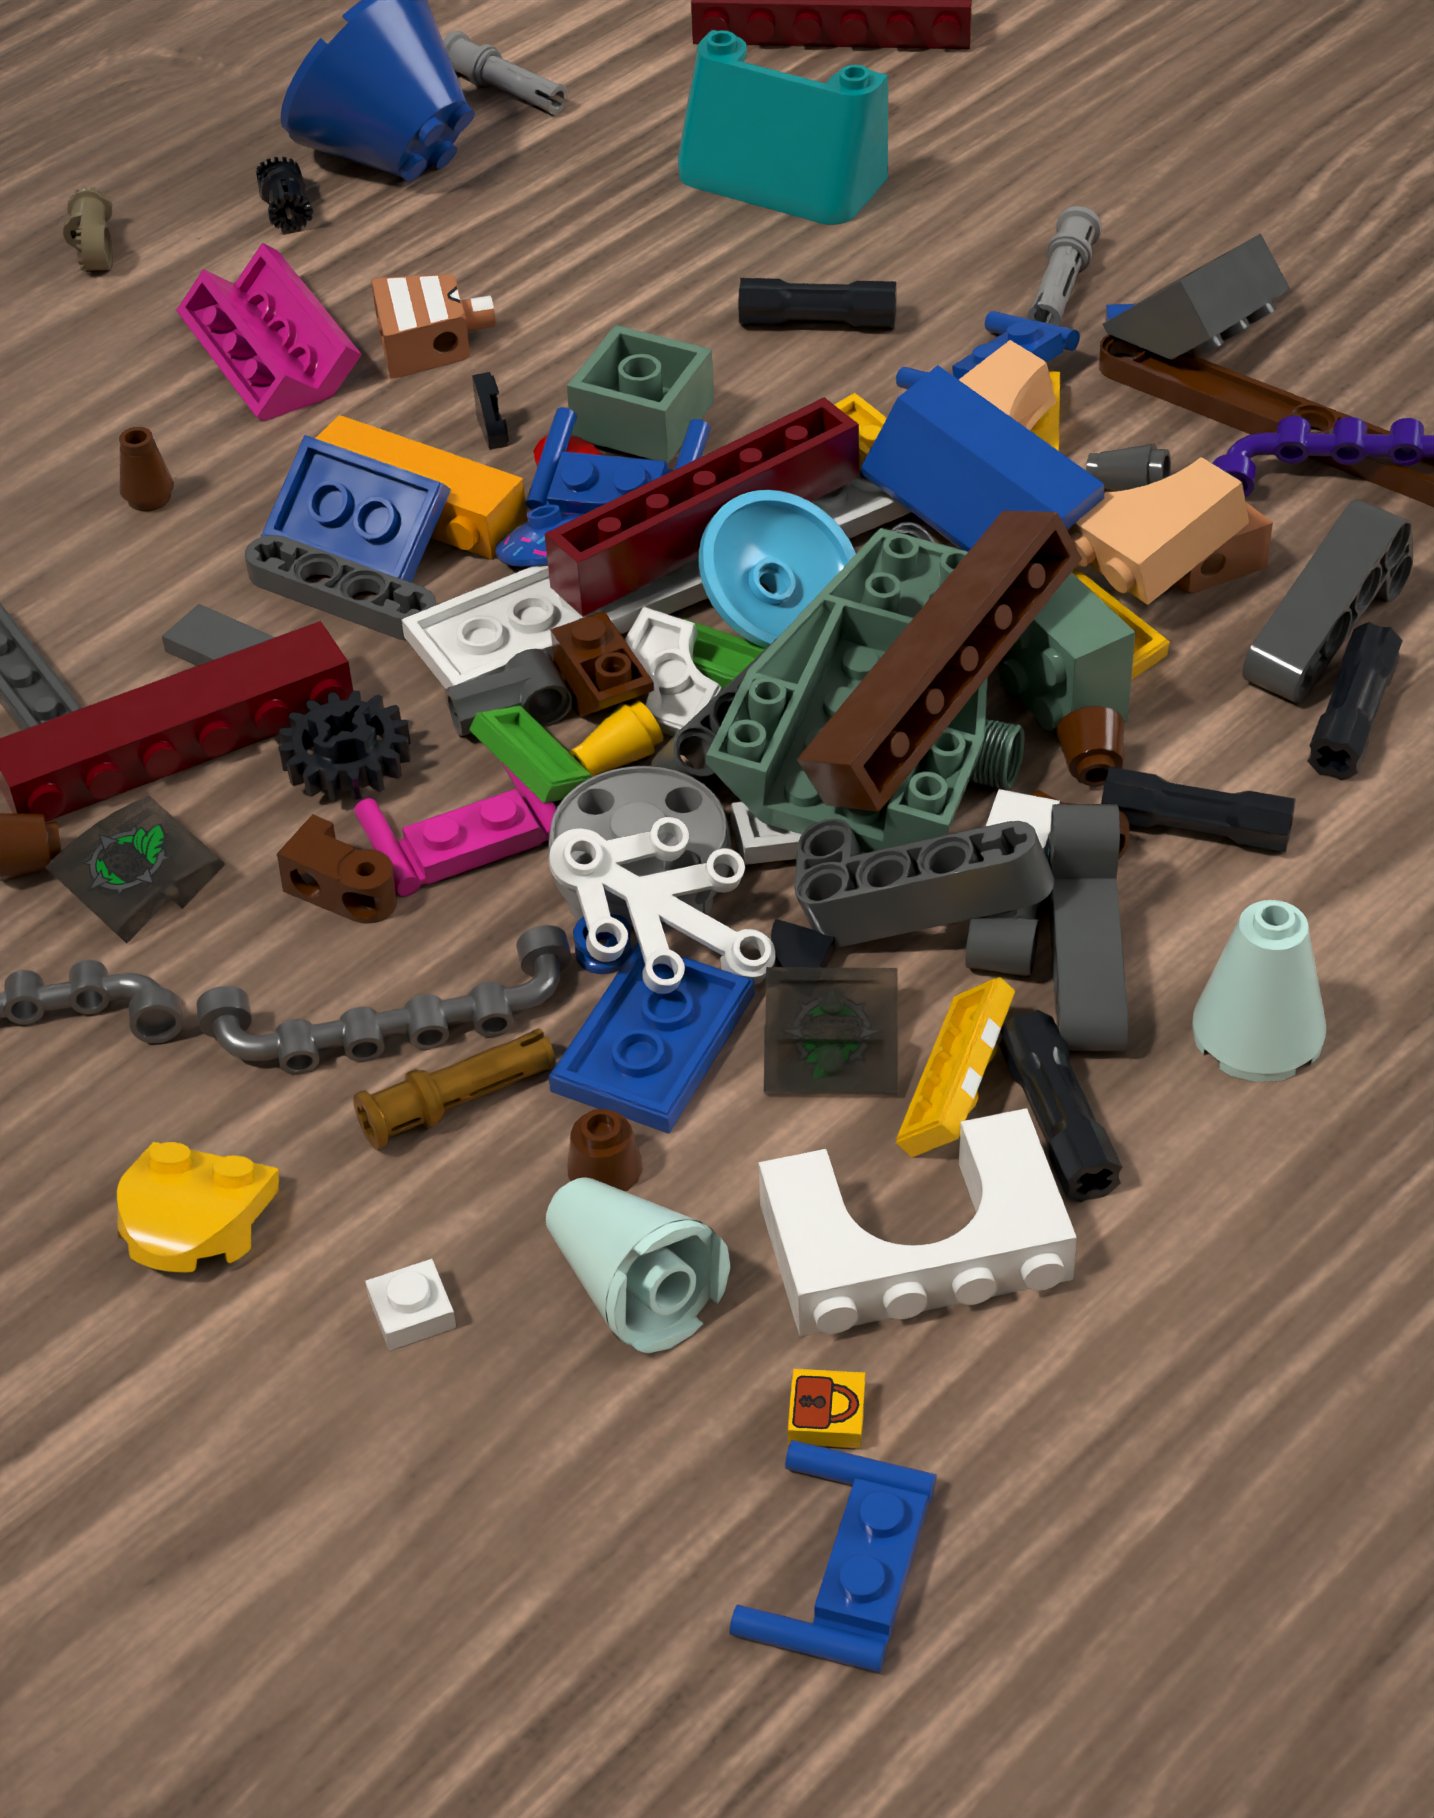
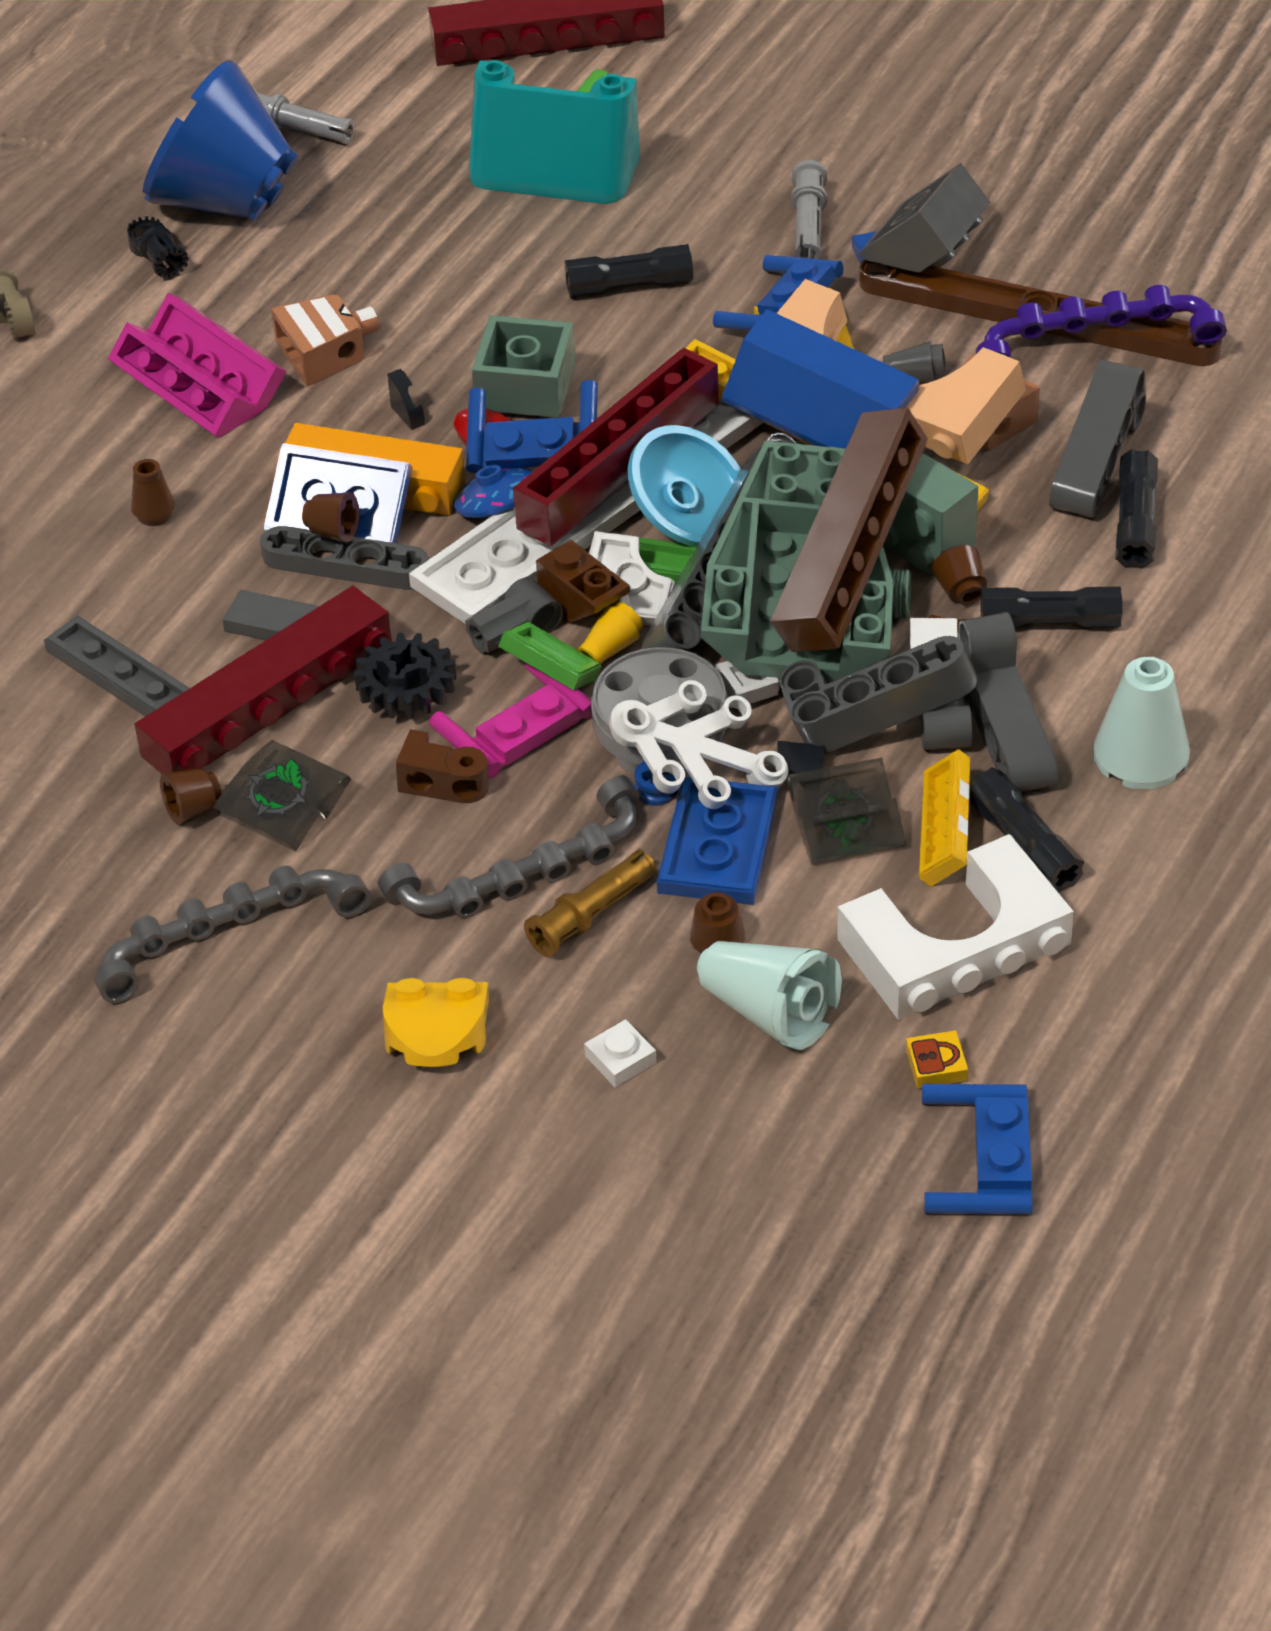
camera: 15 degrees left, 0 degrees up
(335, 532) = (332, 515): none -> reddish brown hat

